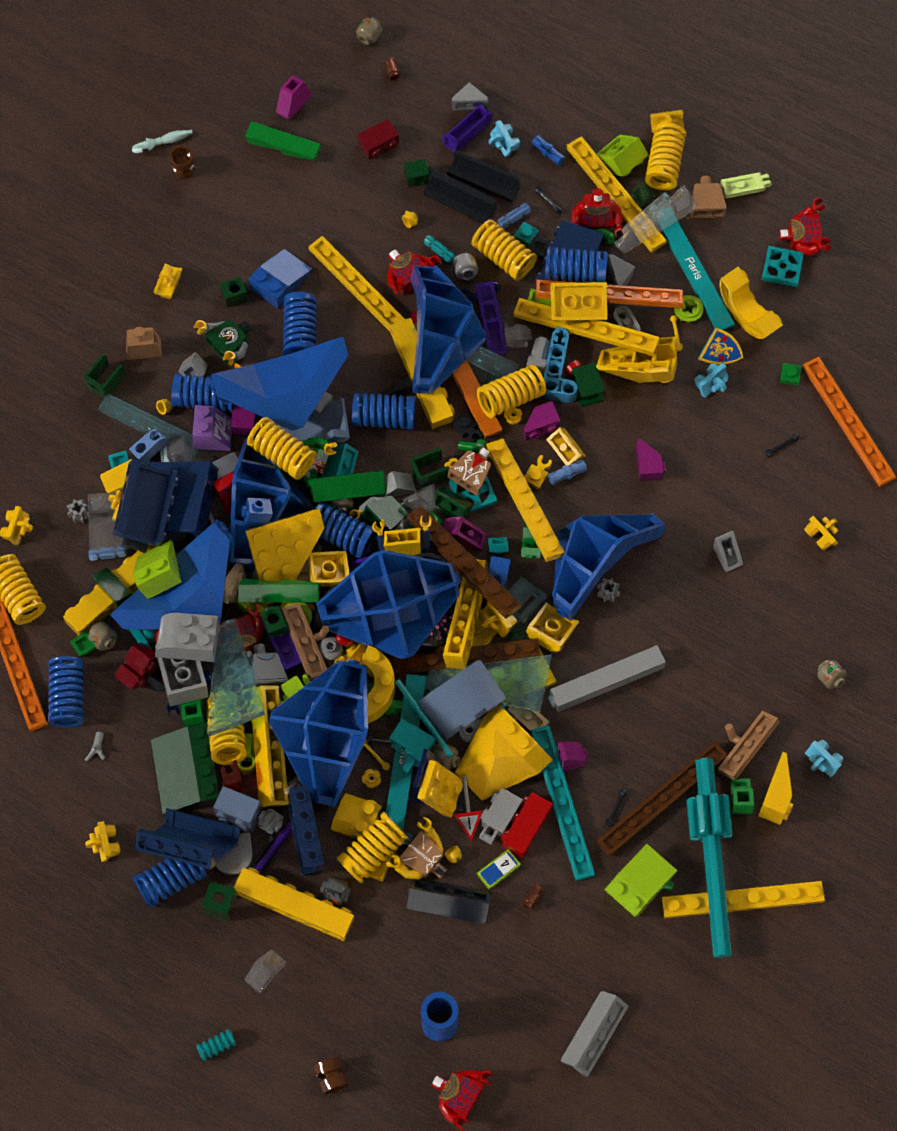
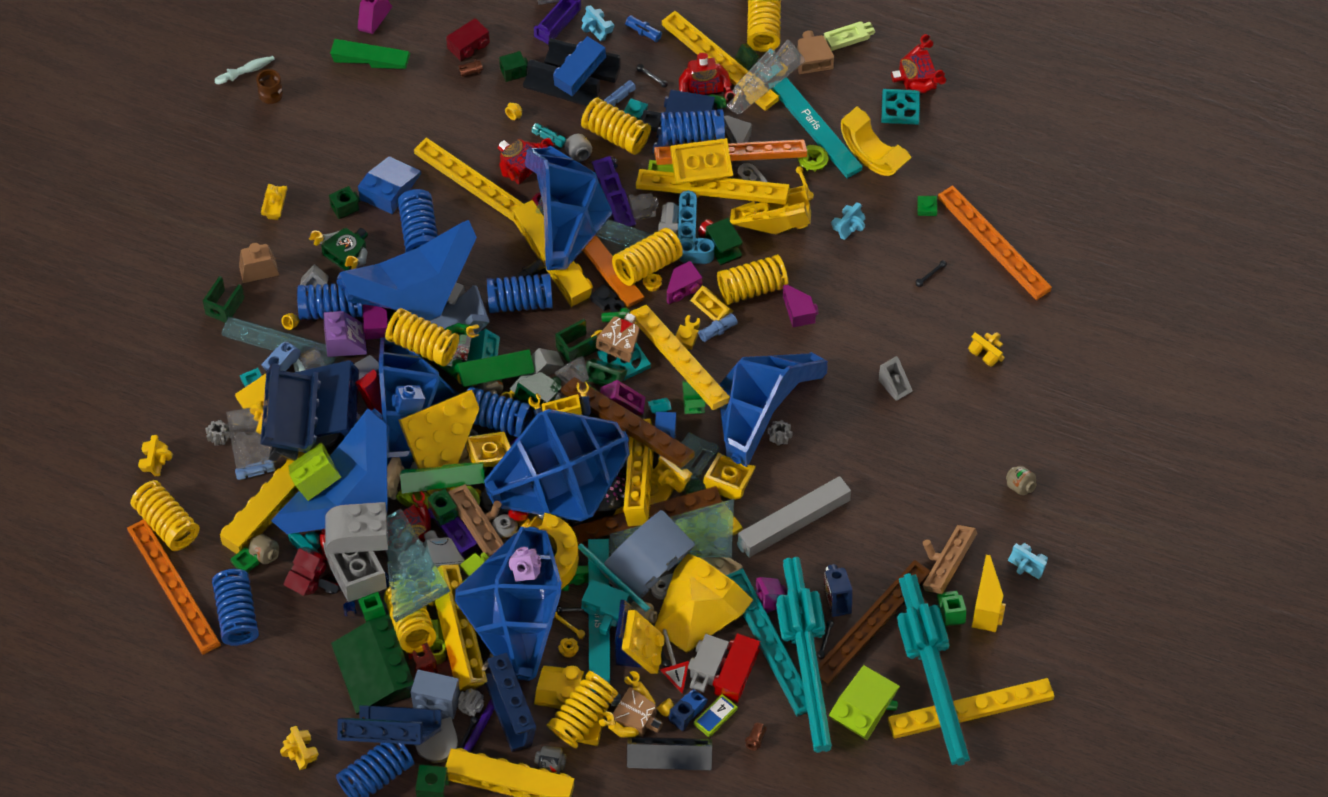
camera: 10 degrees left, 10 degrees down
(96, 748) = (275, 658): light grey bar -> none
(111, 586) = (265, 497): dark green slope -> none
(337, 704) = (525, 564): none -> lavender brick
(374, 169) = (470, 68): none -> copper pin
(473, 859) = (687, 709): none -> dark blue leg
(478, 184) = (579, 66): none -> blue brick
(593, 422) = (754, 282): none -> yellow piece
(595, 788) = (800, 621): none -> teal axle
(623, 154) = (721, 22): lime slope -> none
(635, 761) = (836, 583): none -> dark blue torso
(721, 348) = (853, 188): shield -> none

